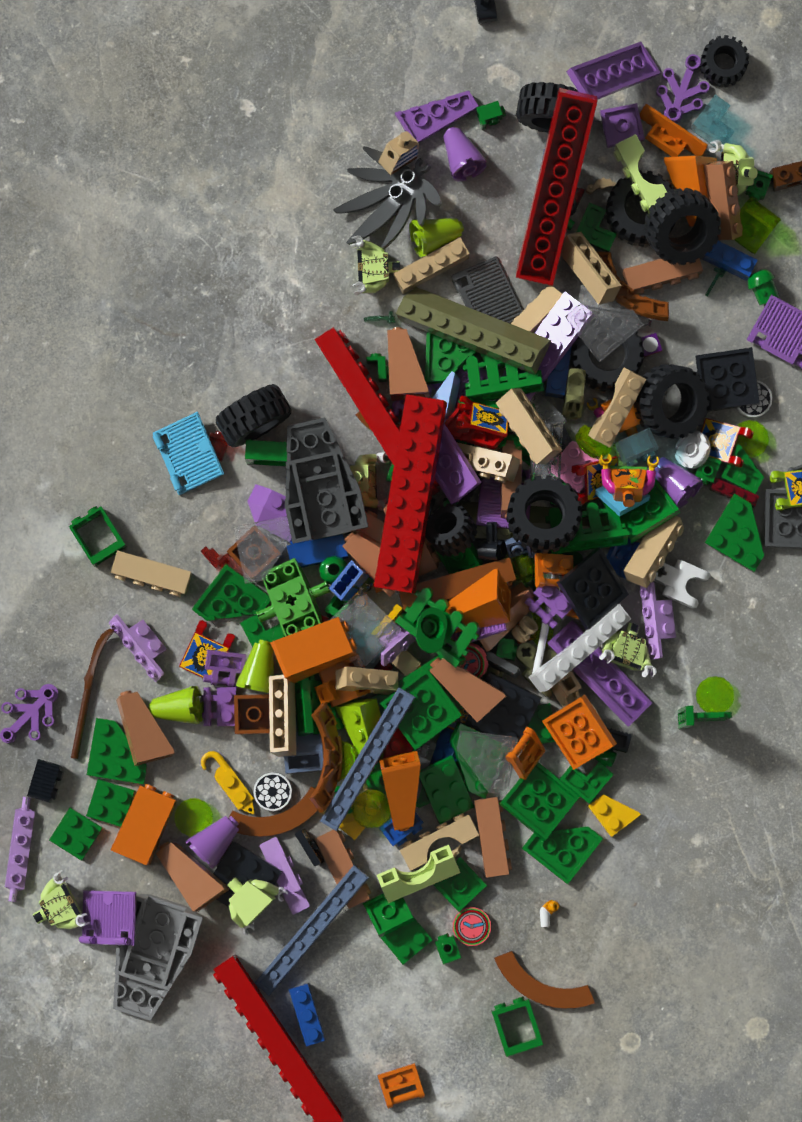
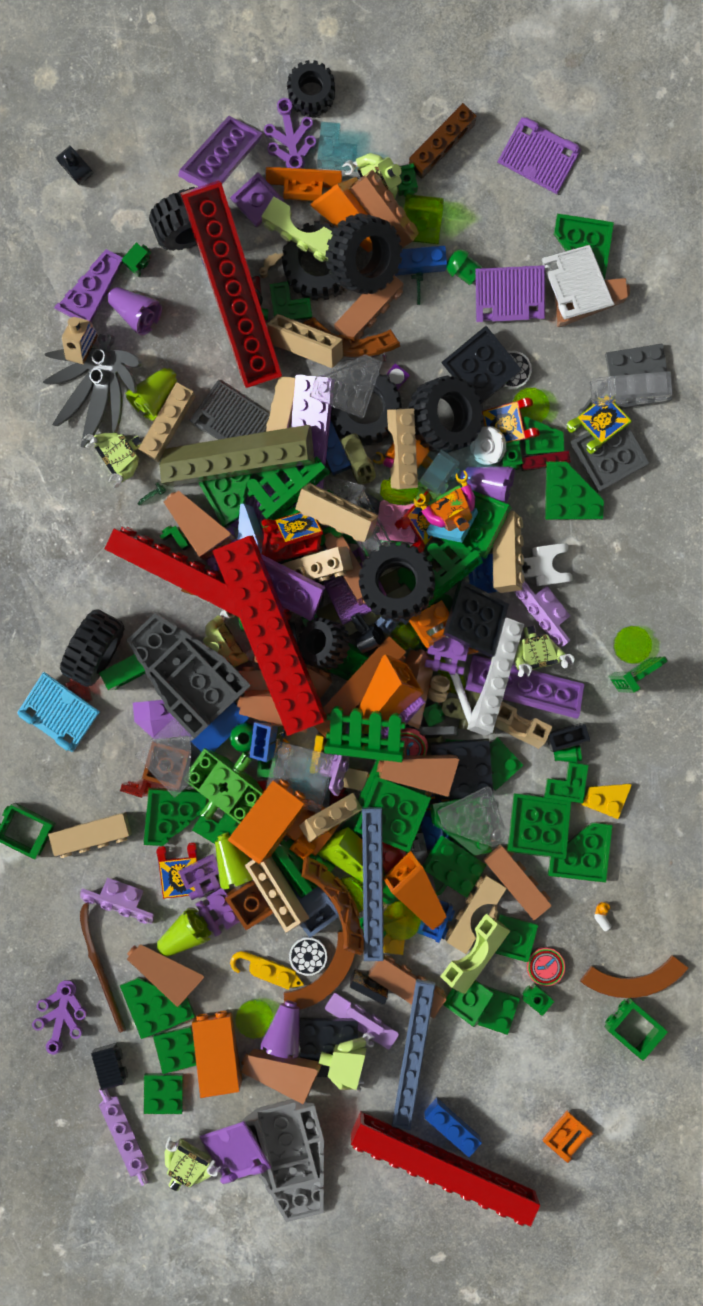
camera: 20 degrees left, 5 degrees up
(431, 630) = (361, 744): green piece -> none
(530, 755) = (504, 795): orange plate -> none
(579, 732) = (540, 749): orange plate -> none

